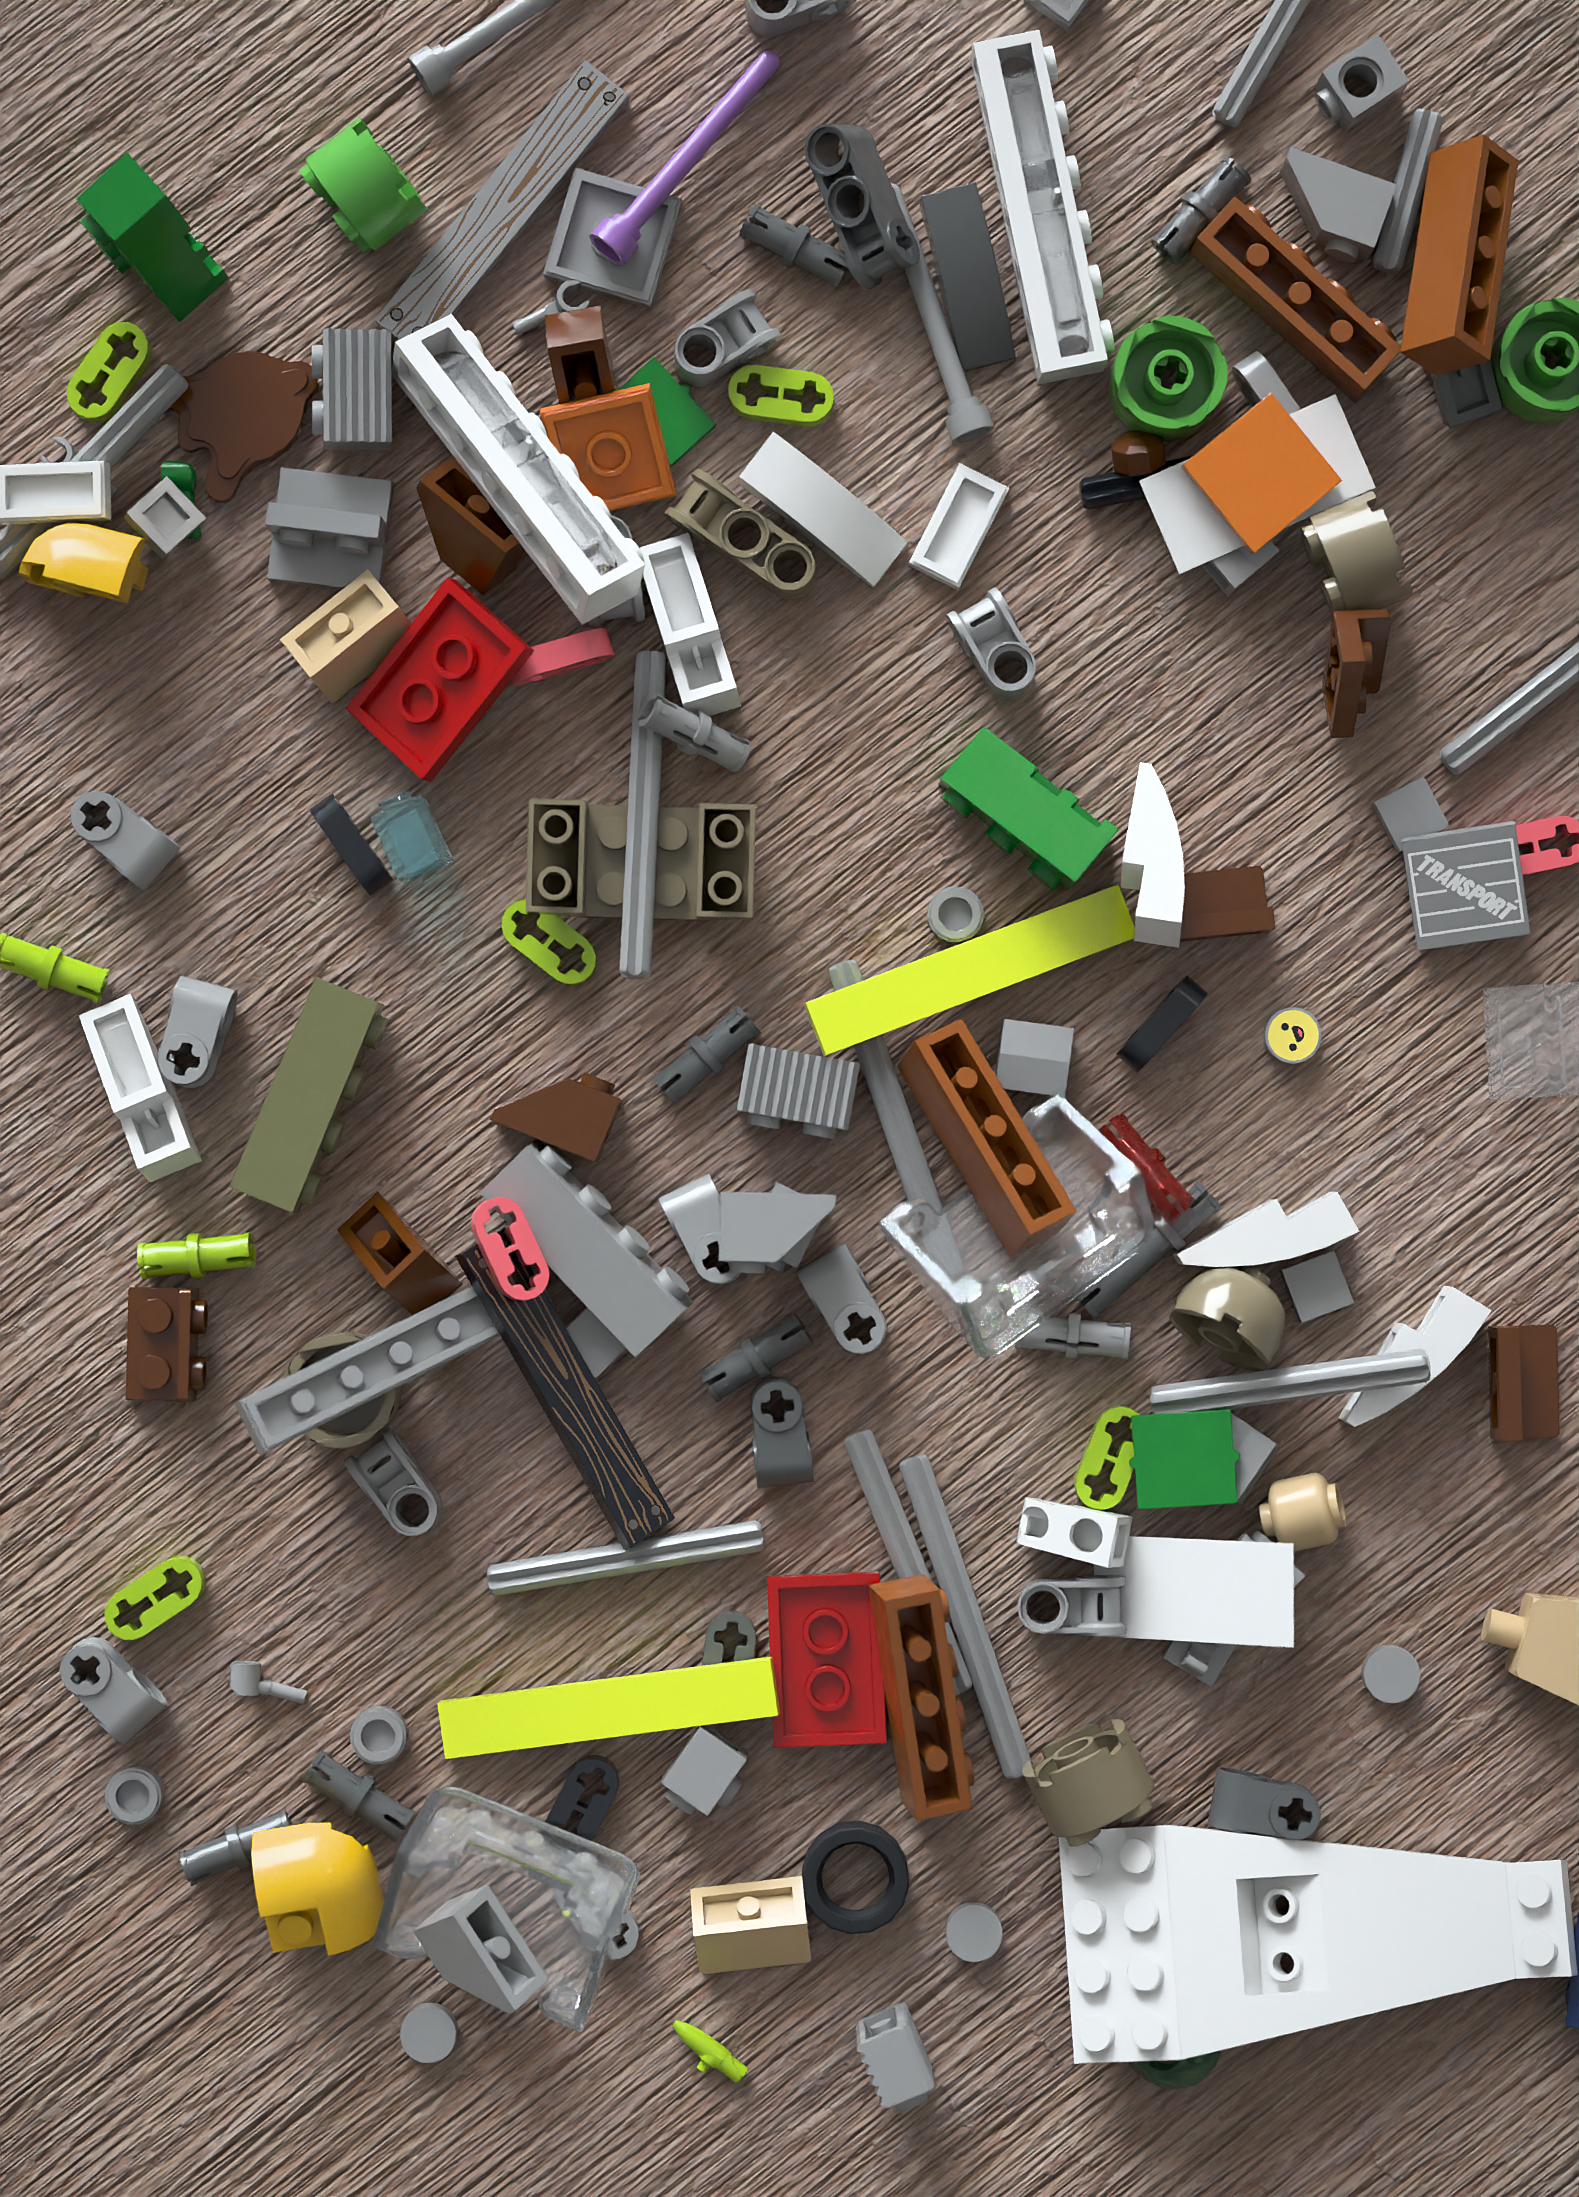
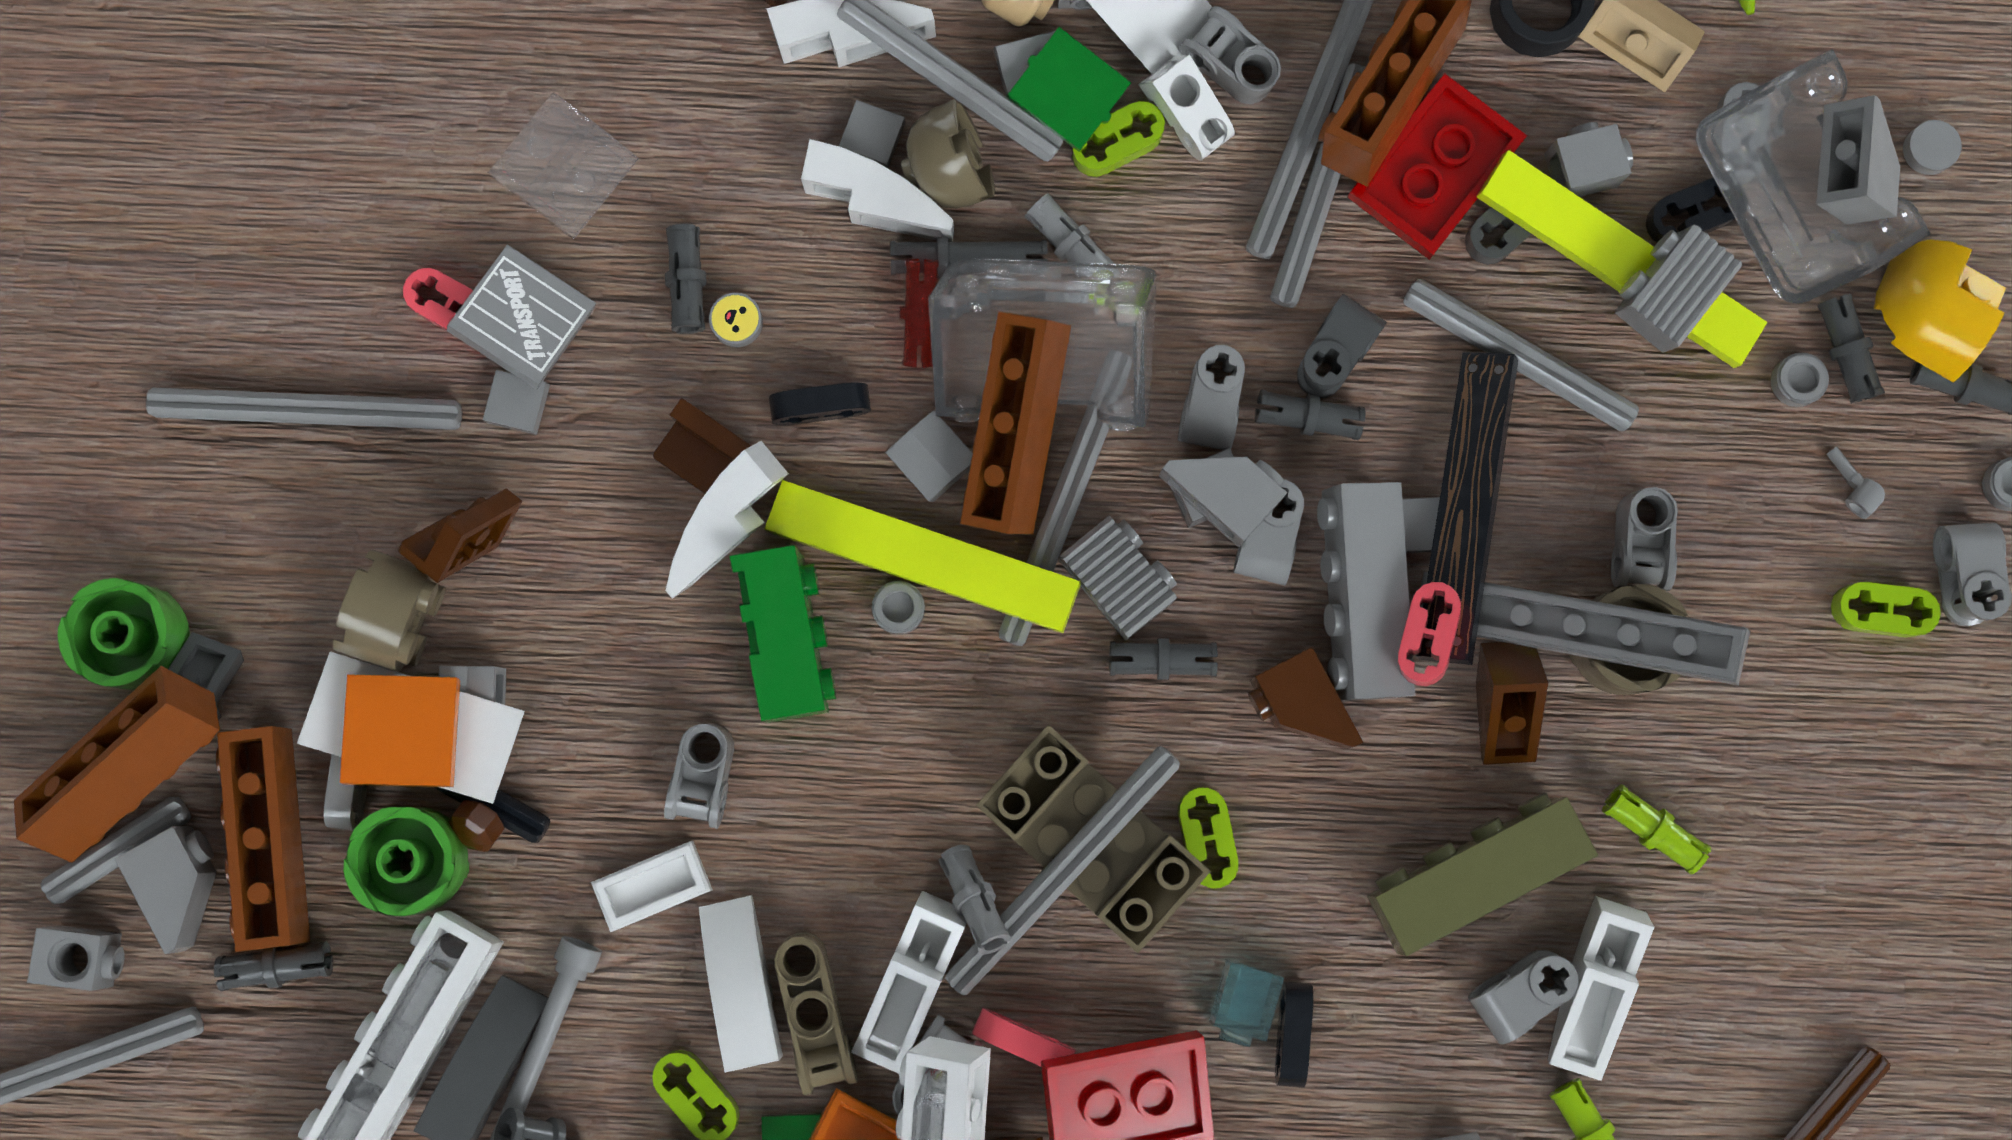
camera: 140 degrees left, 5 degrees down
(165, 1344) = (1731, 785): reddish brown bracket -> none
(545, 1714) = (1676, 287): none -> light grey brick
(1362, 1033) = (685, 279): none -> dark grey pin

